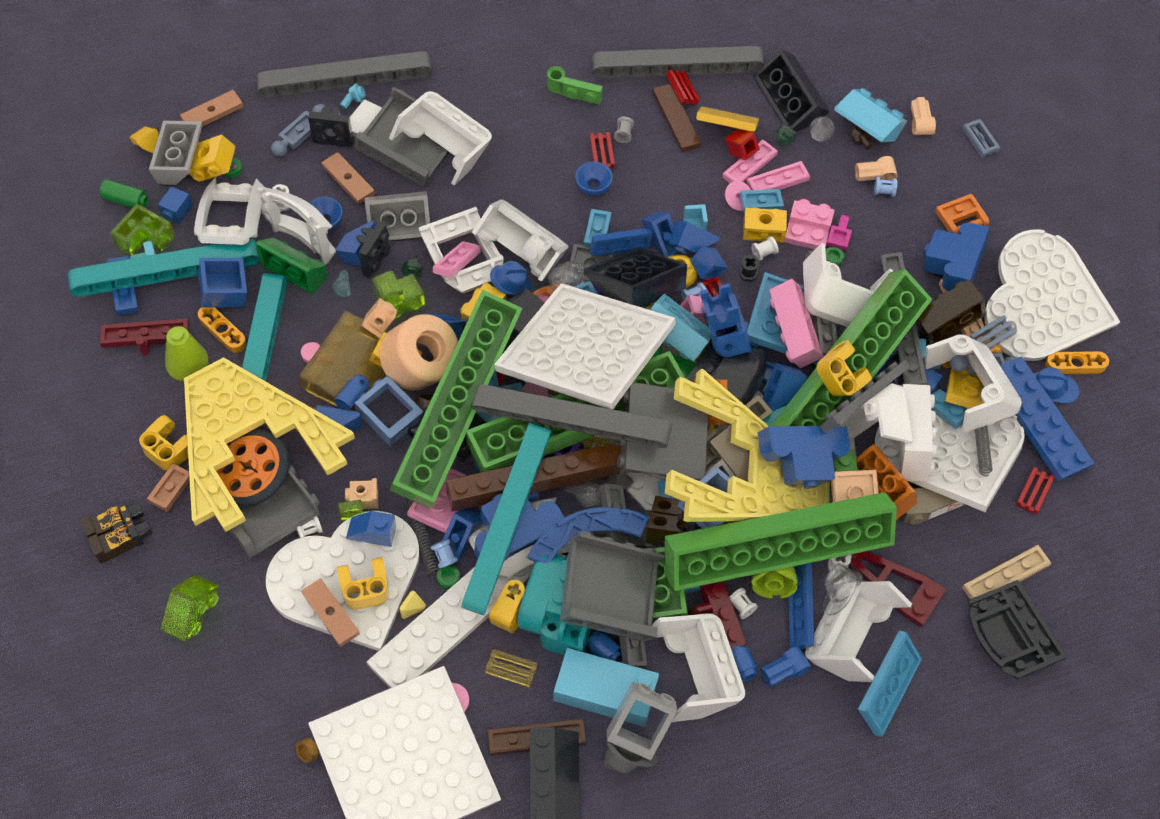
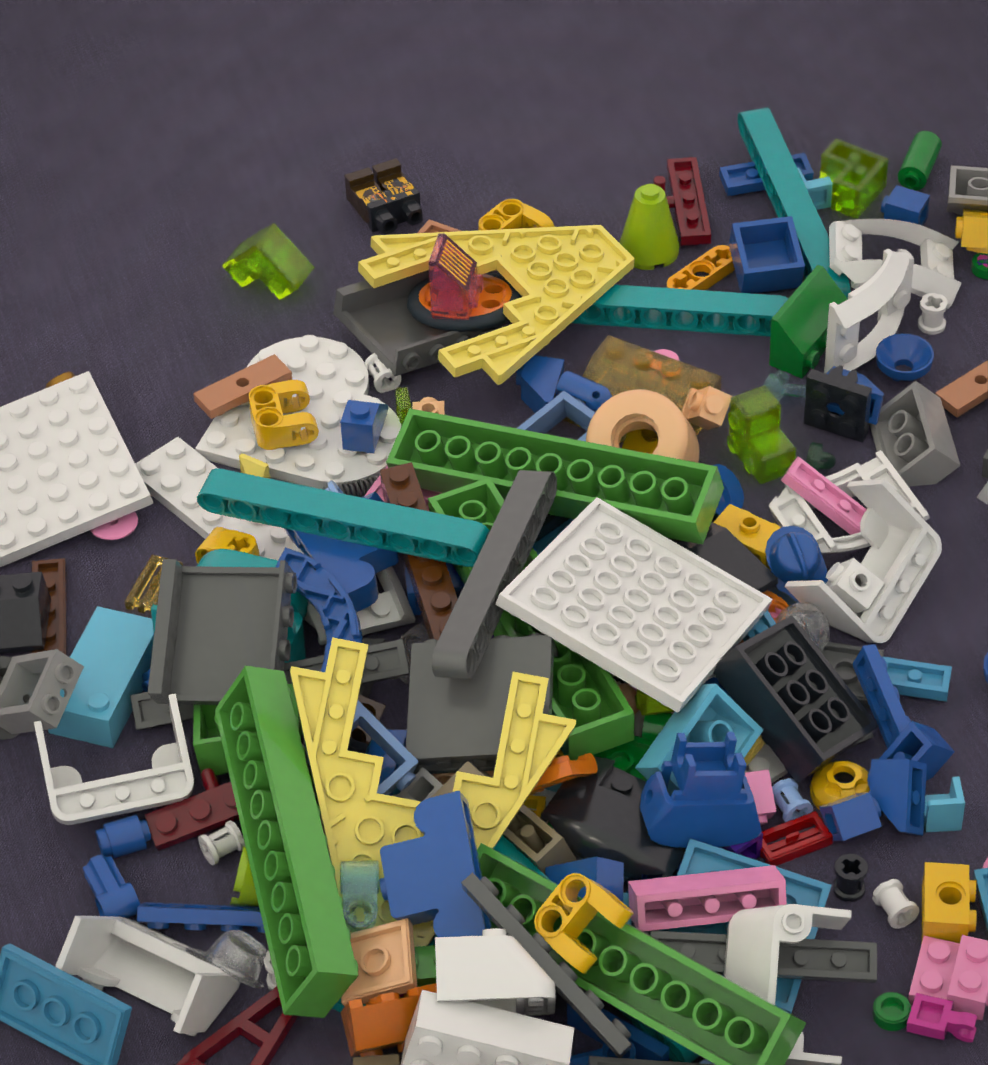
camera: 95 degrees right, 15 degrees down
(252, 465) = (453, 280): none -> clear pink slope
(809, 496) = (359, 889): none -> clear light blue piece

